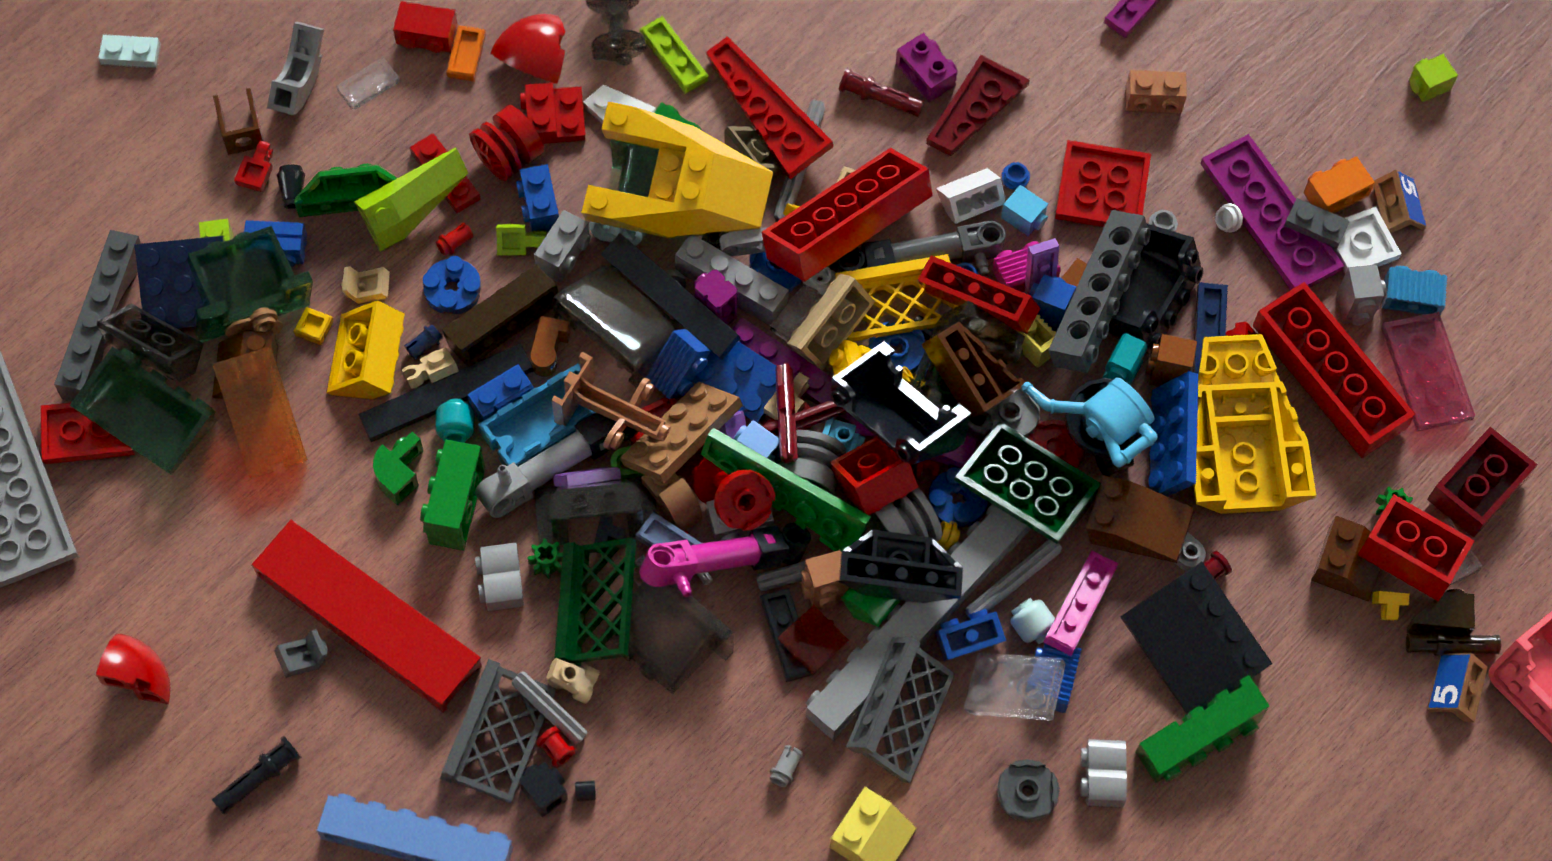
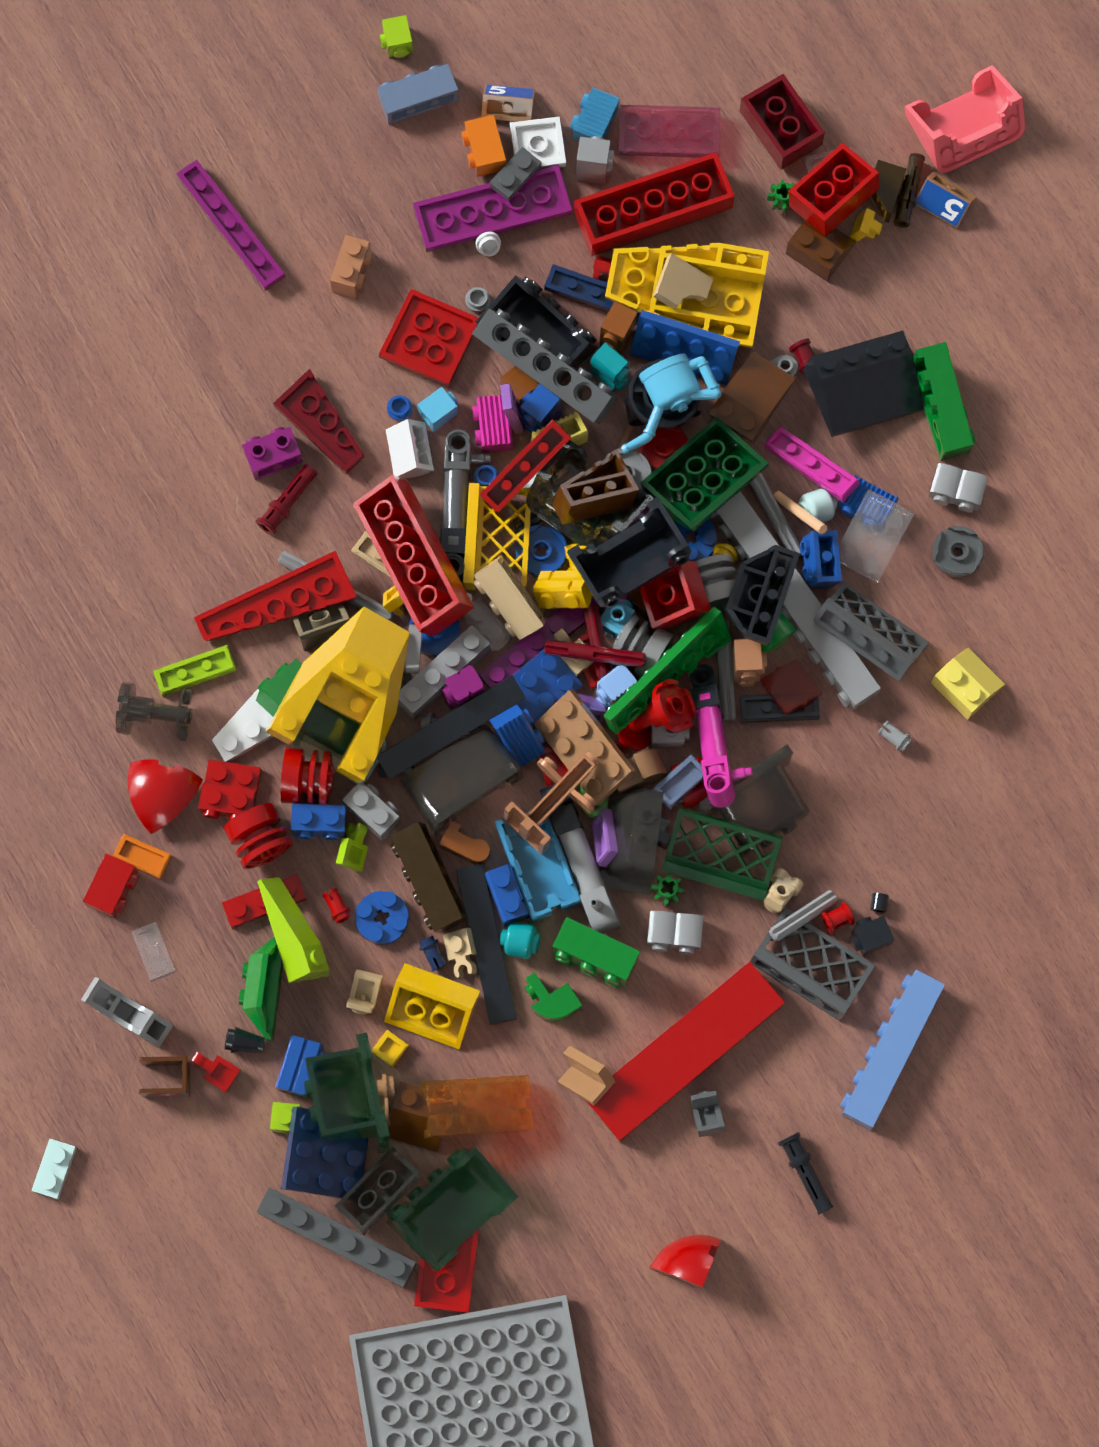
camera: 75 degrees left, 10 degrees up
(315, 517) = (585, 1076): none -> medium nougat panel
(575, 166) = (306, 776): none -> red wheel
(1017, 599) = (800, 512): none -> light nougat bar
(1247, 410) = (681, 282): none -> tan tile
(1375, 111) = (417, 93): none -> sand blue brick

